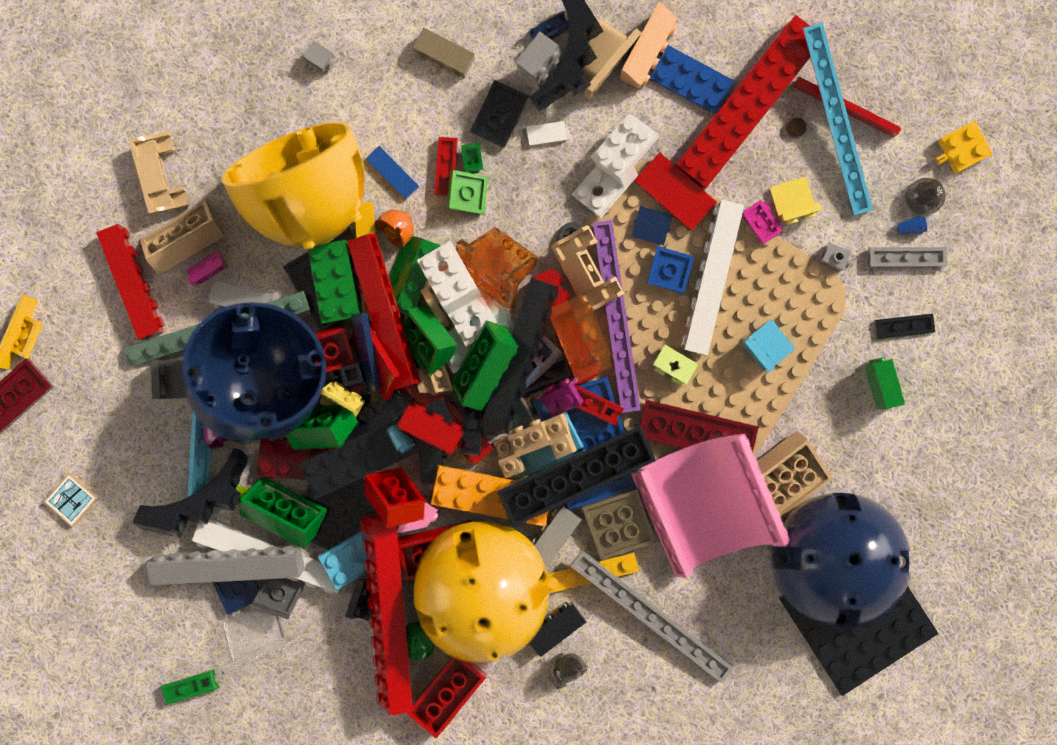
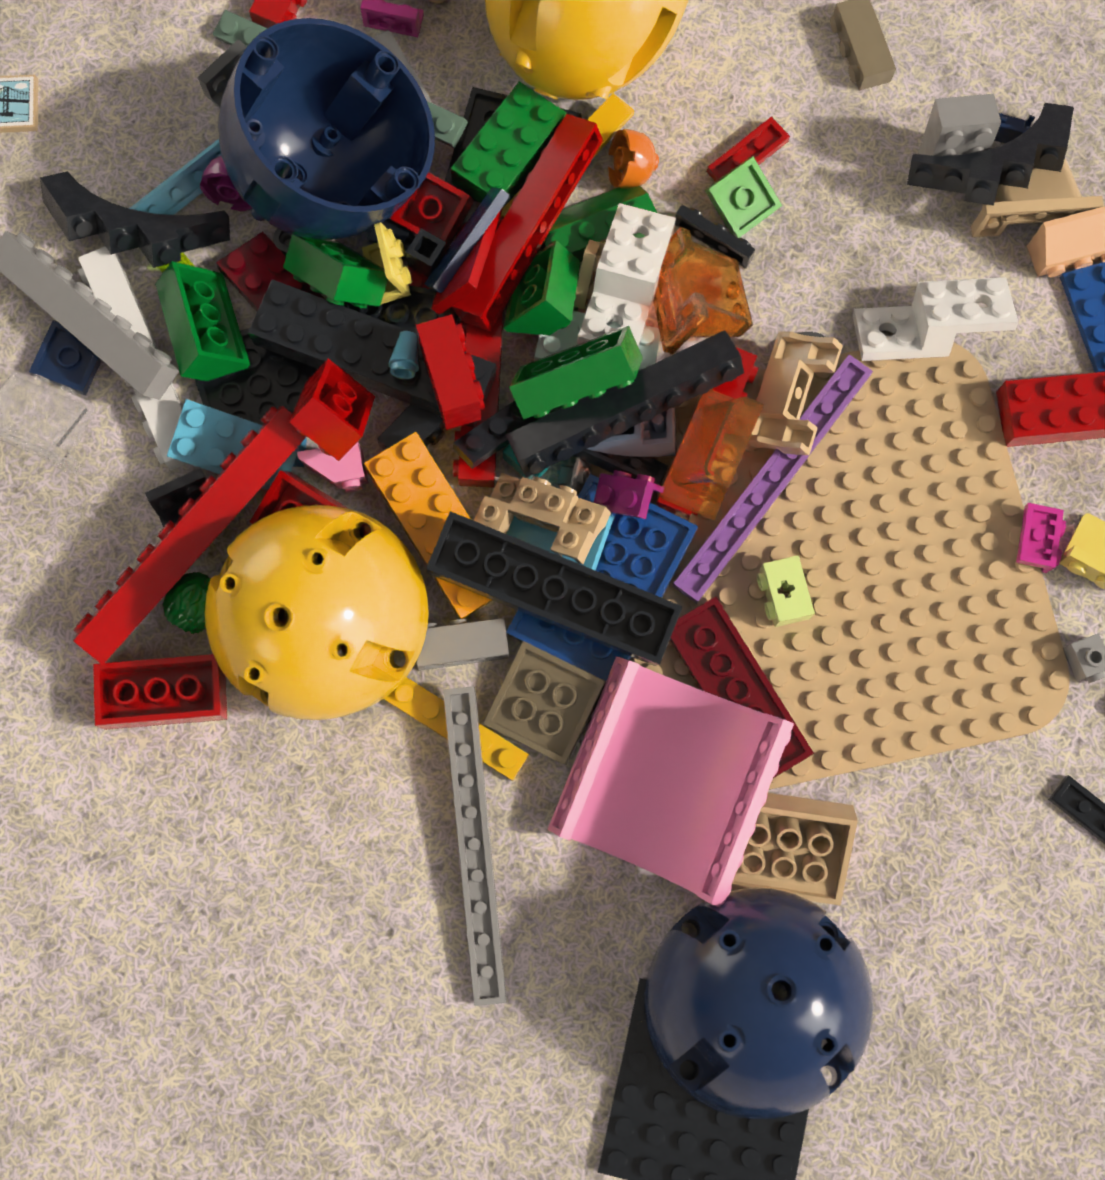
camera: 45 degrees right, 10 degrees down
(278, 596) = (102, 404): dark grey tile -> none
(392, 173) = (684, 108): blue tile -> none
(436, 384) = (507, 348): tan slope -> none
(472, 158) = (785, 170): green bracket -> none
(472, 224) = (714, 235): none -> black plate
(499, 114) = (859, 156): black plate -> none
(546, 133) = (890, 224): white tile -> none
(557, 628) = (354, 746): black brick -> none
(566, 668) = (317, 803): clear smoke cylinder -> none
(597, 405) = (655, 545): red plate -> none
(652, 225) = (910, 423): dark blue piece -> none
(670, 270) = (884, 487): blue plate -> none
(675, 191) = (973, 413): red tile -> none
(713, 277) = (924, 541): white brick -> none
(768, 346) = (913, 676): medium azure bracket -> none
(884, 383) = (1010, 852): green brick -> none

